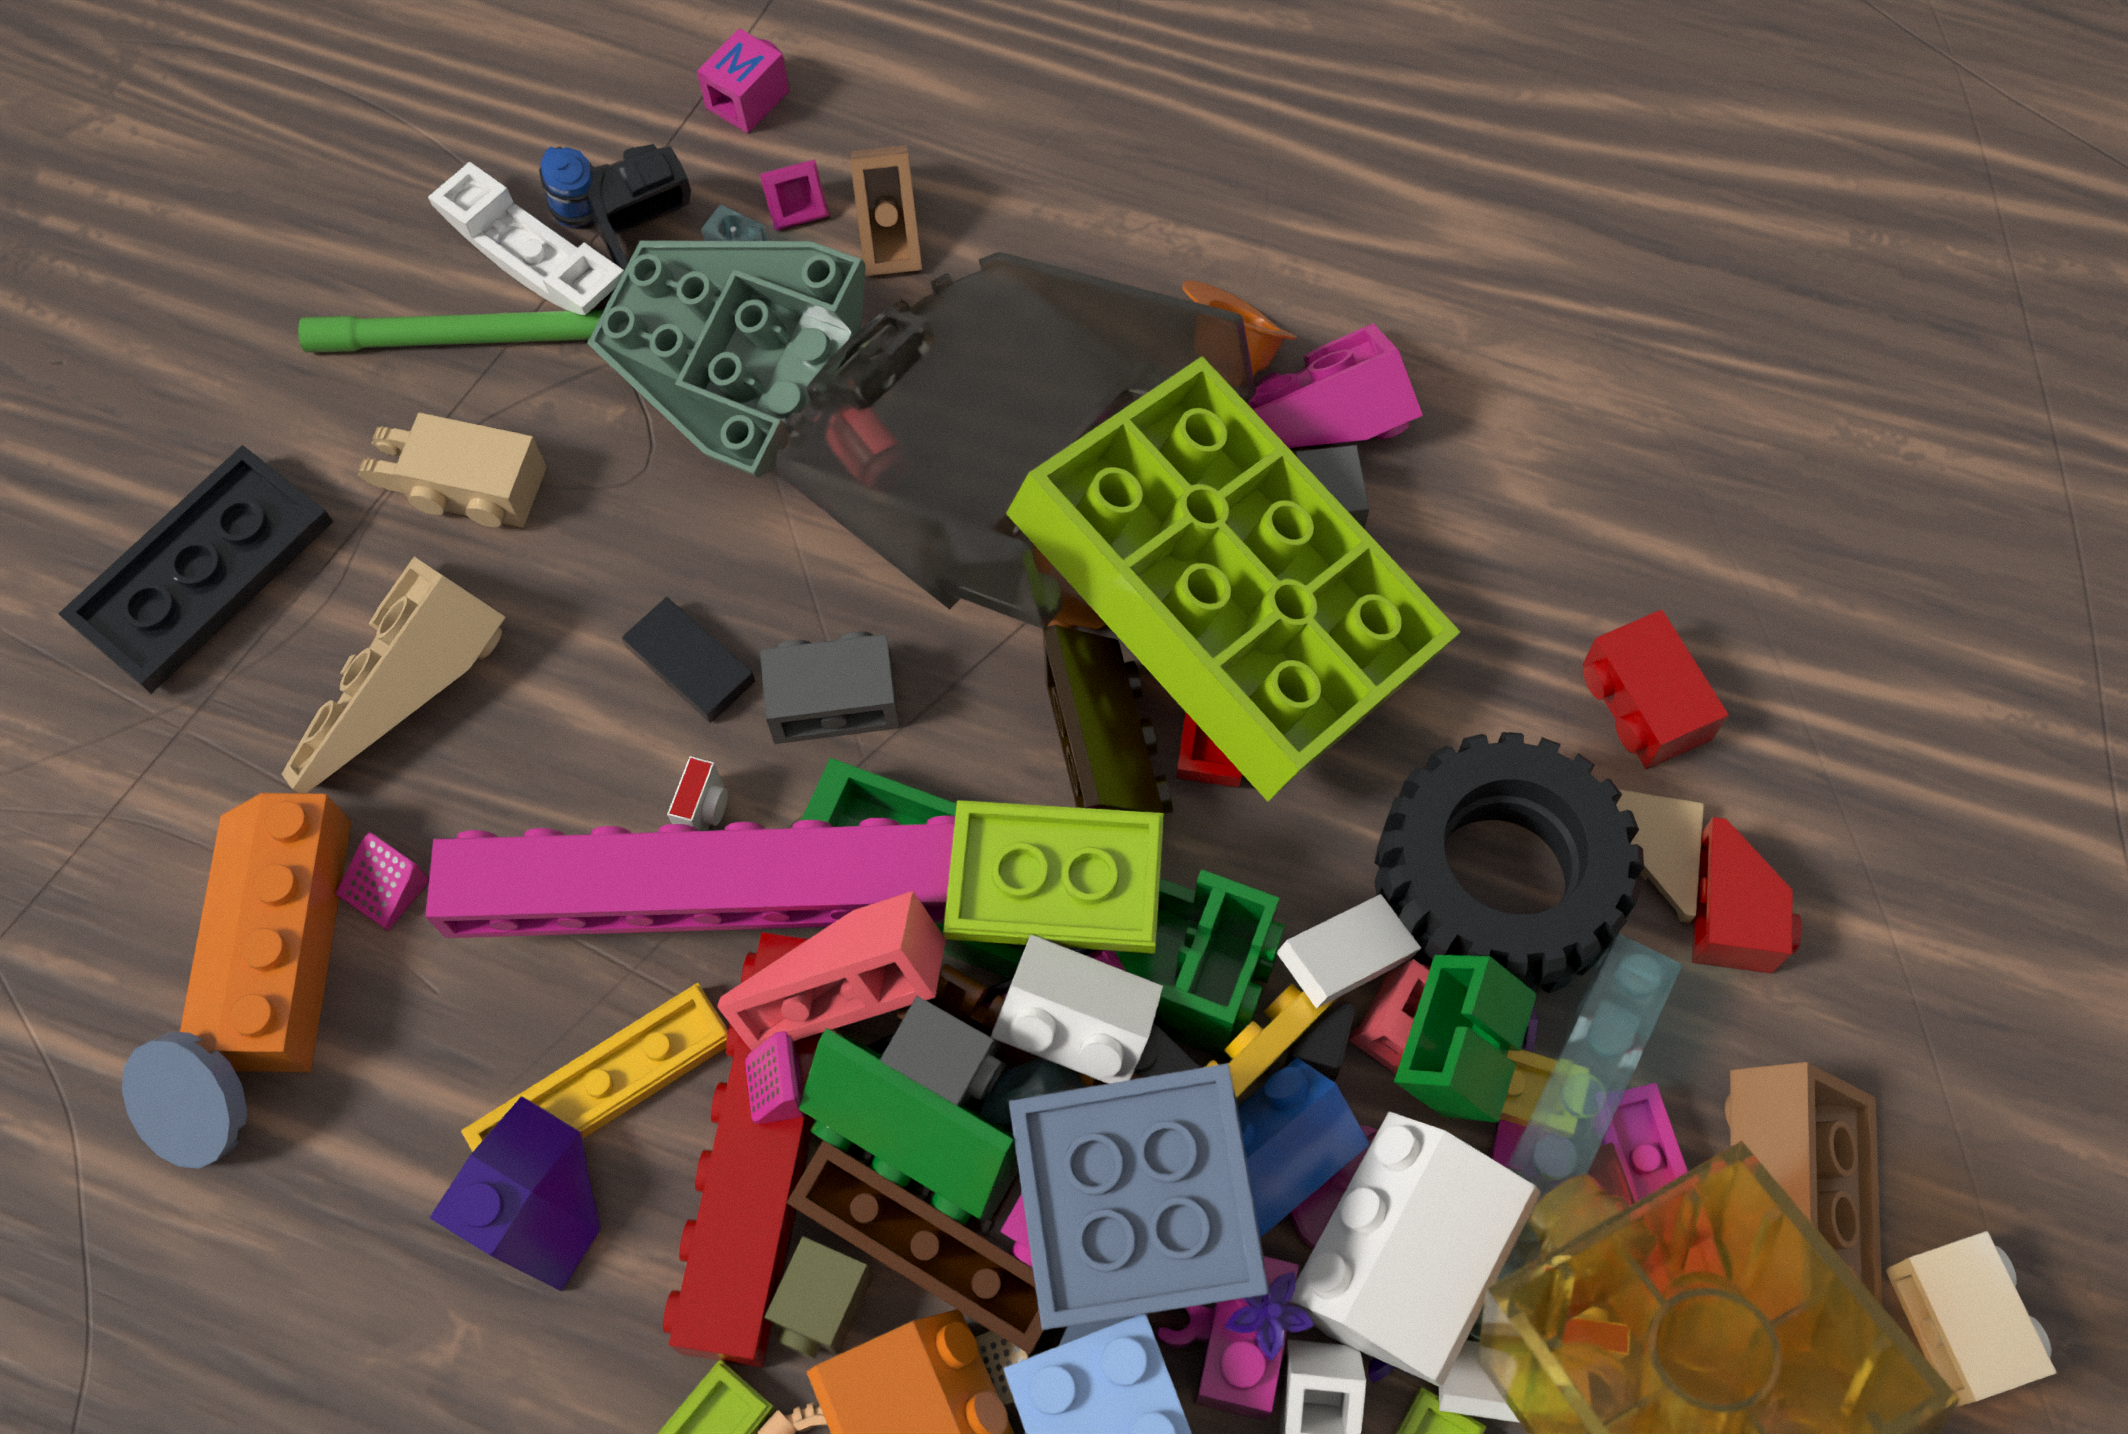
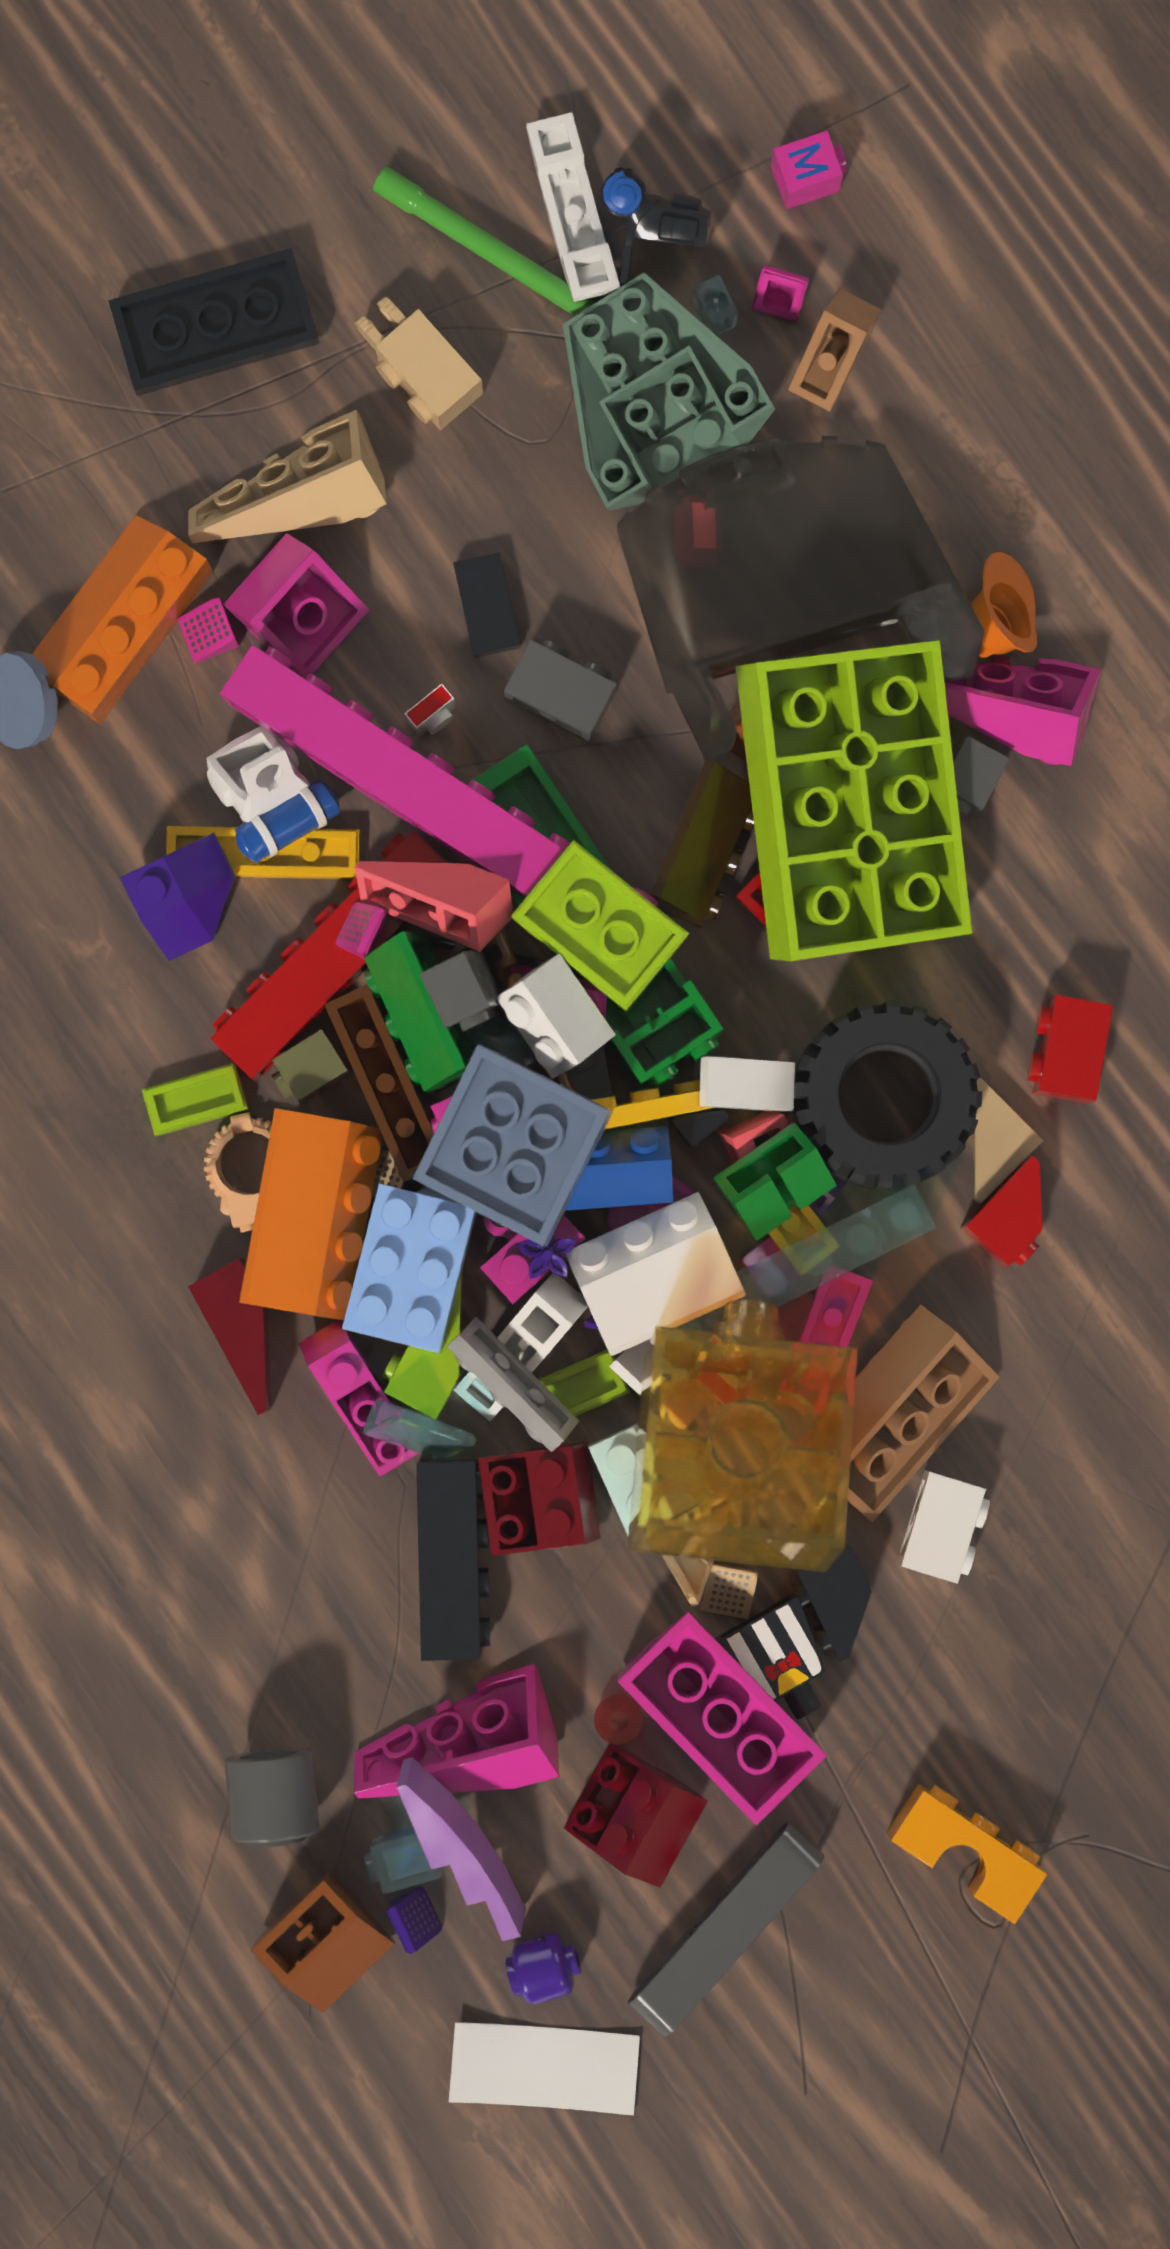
camera: 30 degrees right, 20 degrees up
(465, 776) = (296, 605): none -> dark pink slope
(563, 1006) = (269, 793): none -> white piece

